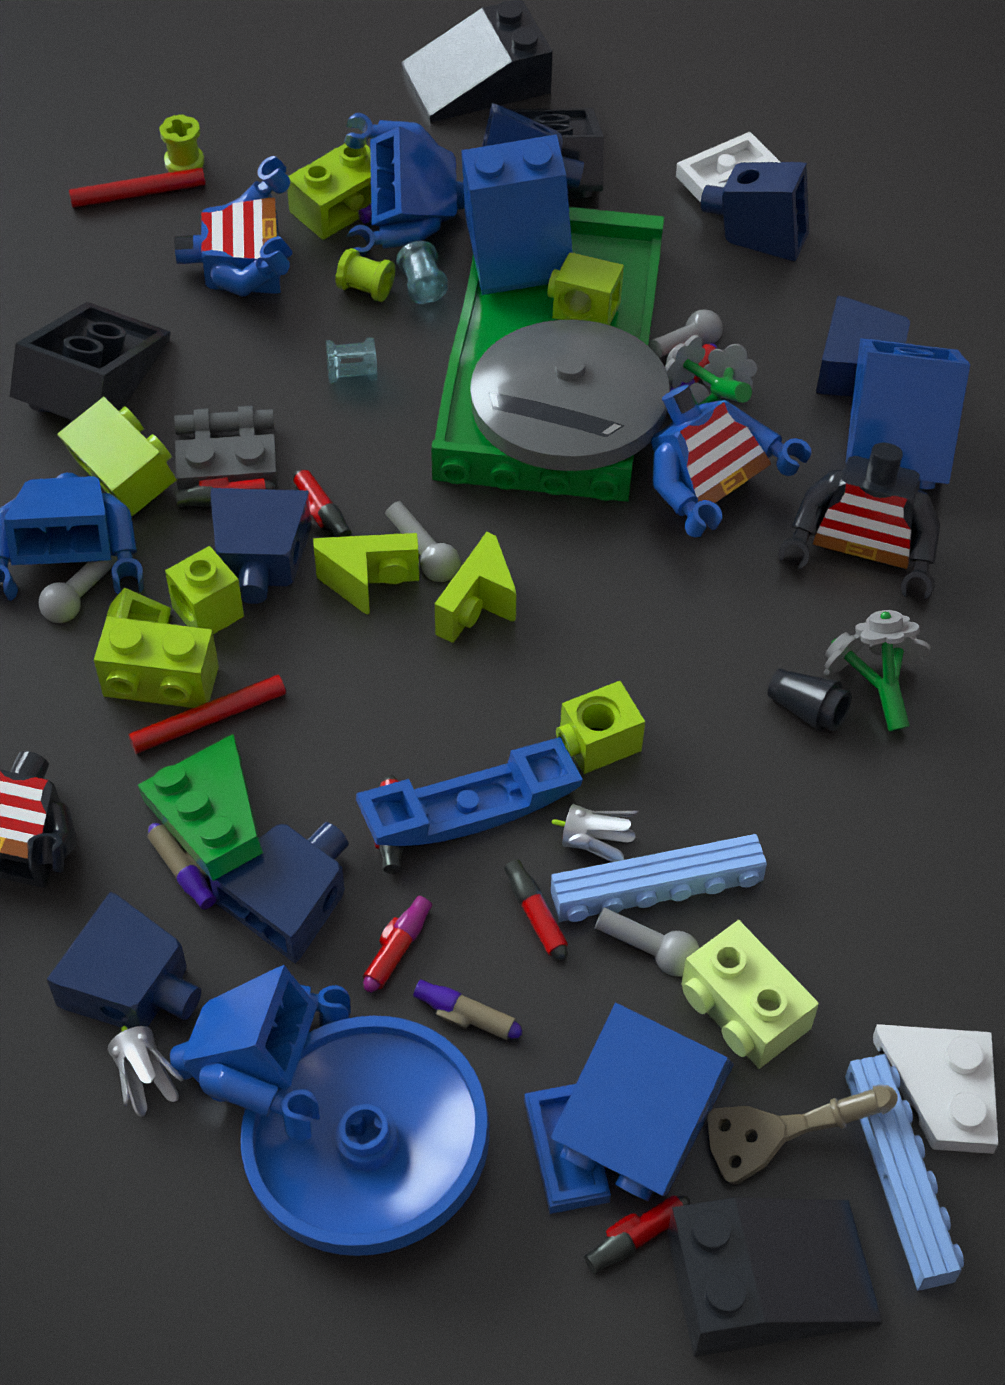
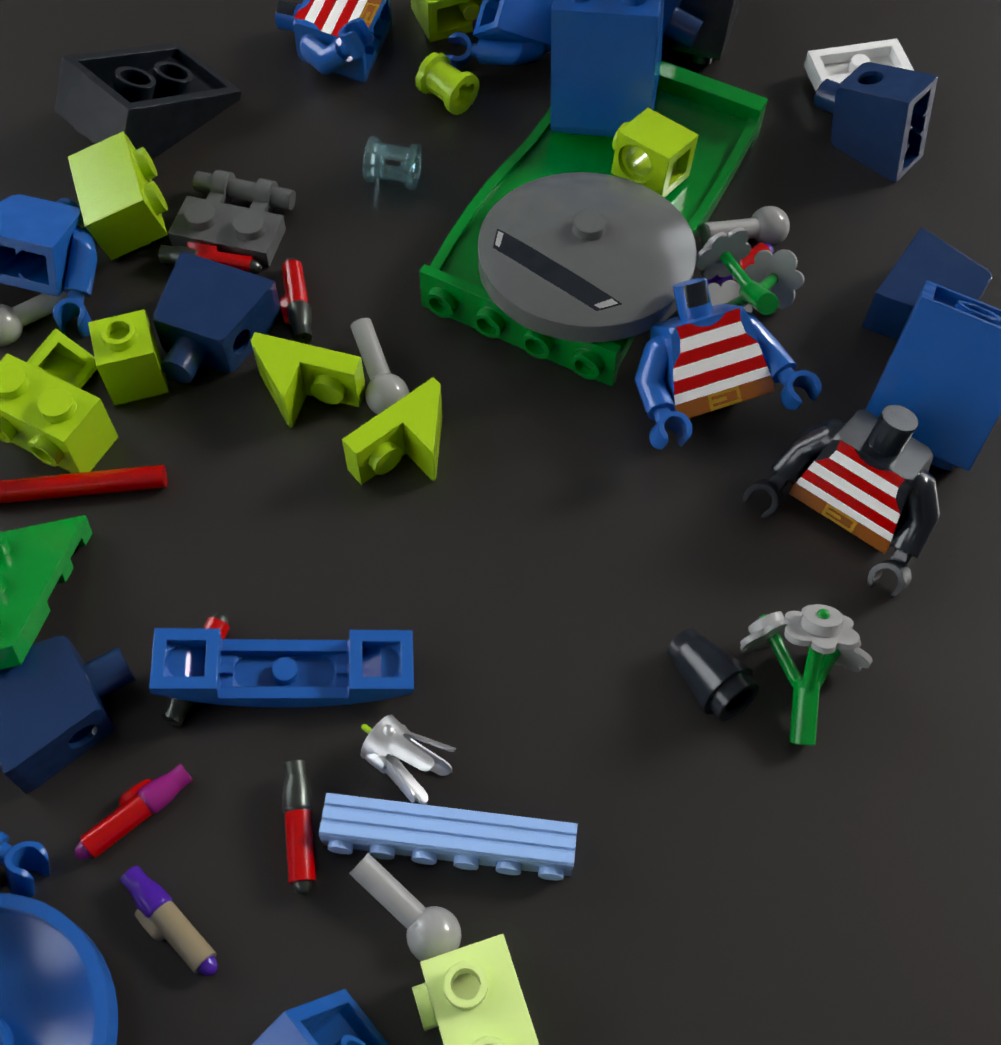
camera: 20 degrees right, 5 degrees up
(419, 265) = (503, 101): clear light blue bush -> none
(605, 709) = (471, 610): lime brick -> none

